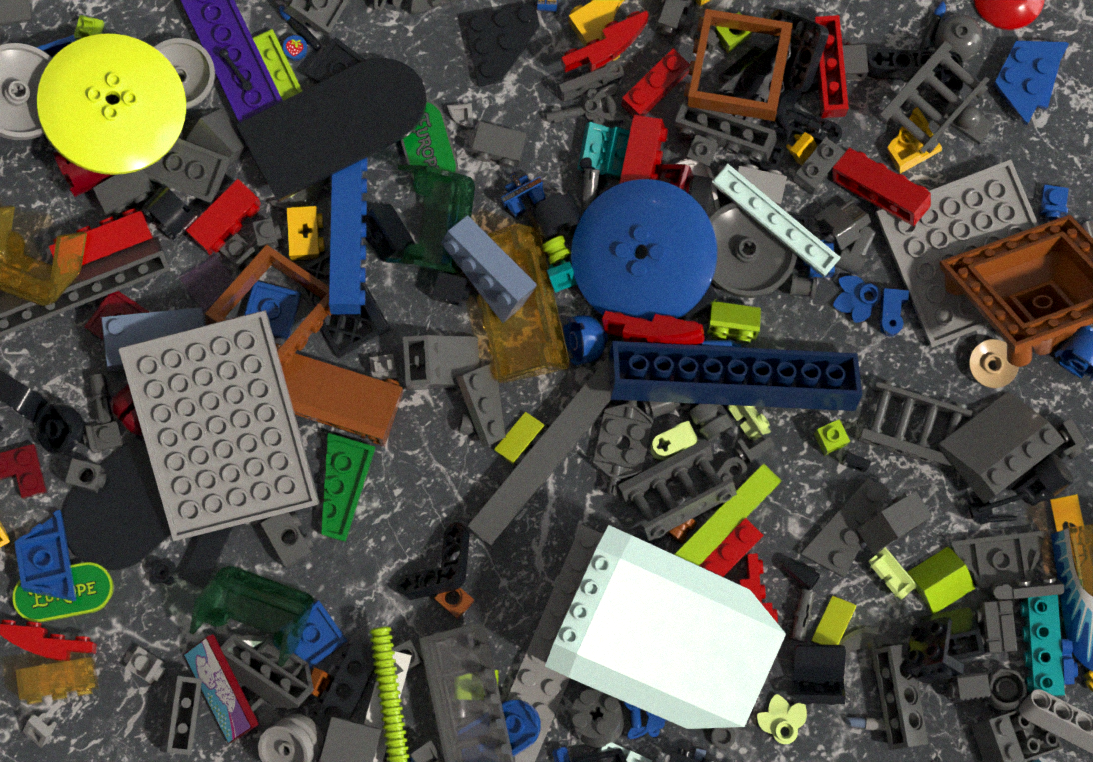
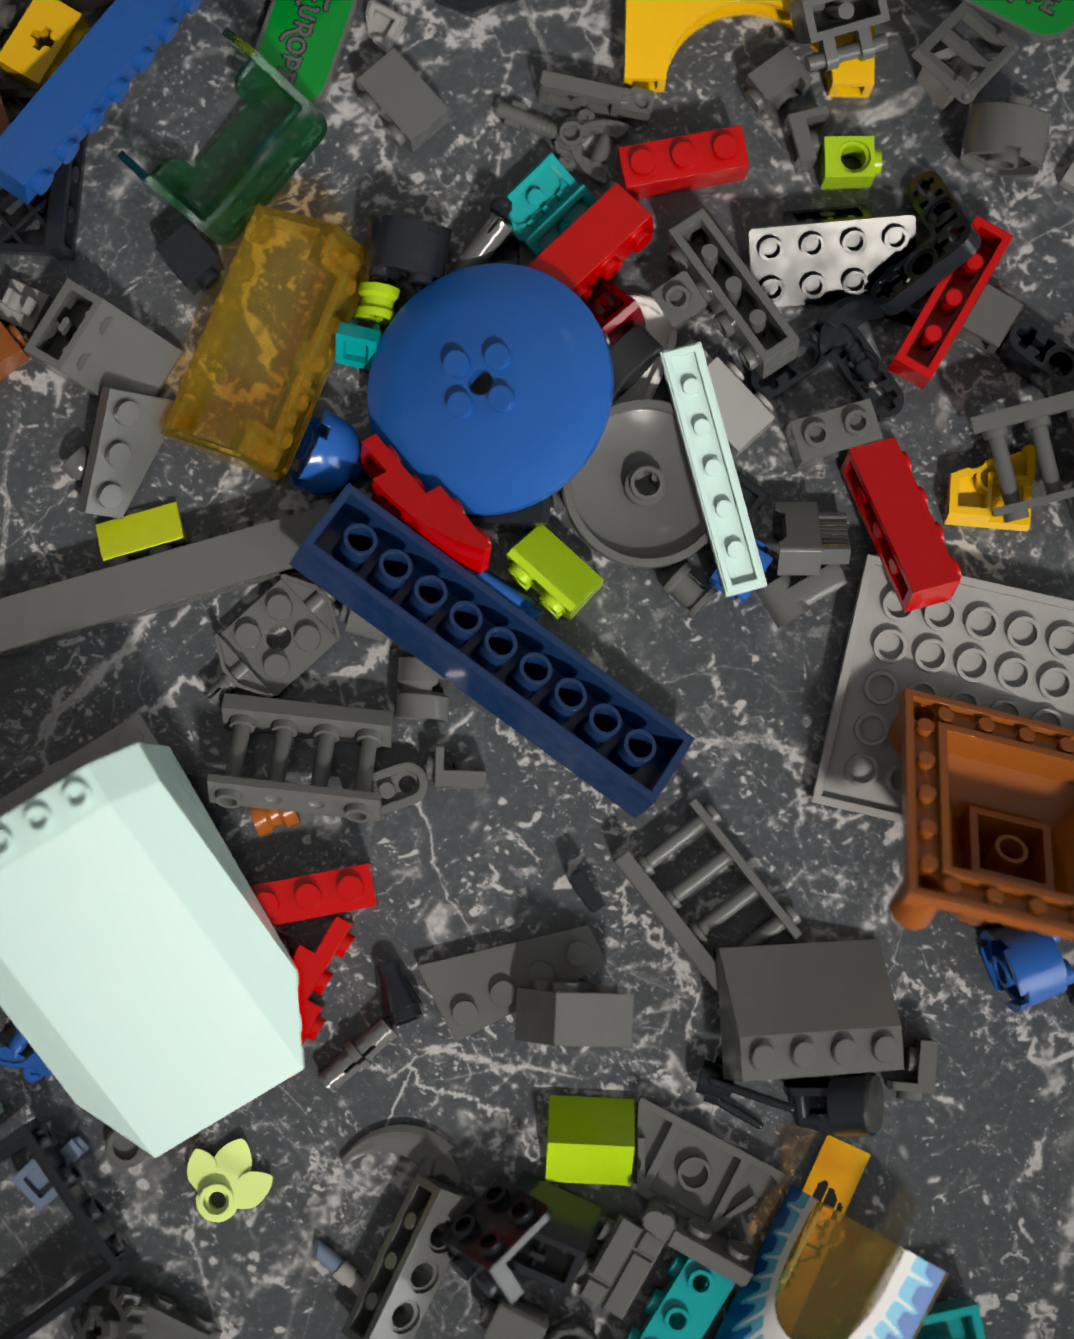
camera: 35 degrees right, 5 degrees up
(386, 231) = (161, 117): black panel -> none
(488, 268) = (253, 260): sand blue wedge -> none
(532, 189) = (385, 184): blue hips -> none
(616, 39) = (668, 59): red slope -> none
(676, 439) = (359, 685): yellowish green piece -> none
(729, 516) = (348, 844): lime beam -> none
(732, 104) = (764, 262): dark orange window -> none
(755, 422) = (485, 739): yellowish green hinge -> none
(803, 148) = (828, 392): yellow tile -> none
(819, 674) = (316, 1157): black bracket -> none
(831, 437) = (576, 832): lime brick -> none
(834, 622) = (394, 1096): neon yellow slope -> none
(853, 298) = (749, 657): blue plate -> none
(890, 311) = (780, 723): blue leg -> none
(893, 573) = (524, 1070): yellowish green hinge -> none
(993, 351) = (859, 879): tan dish -> none

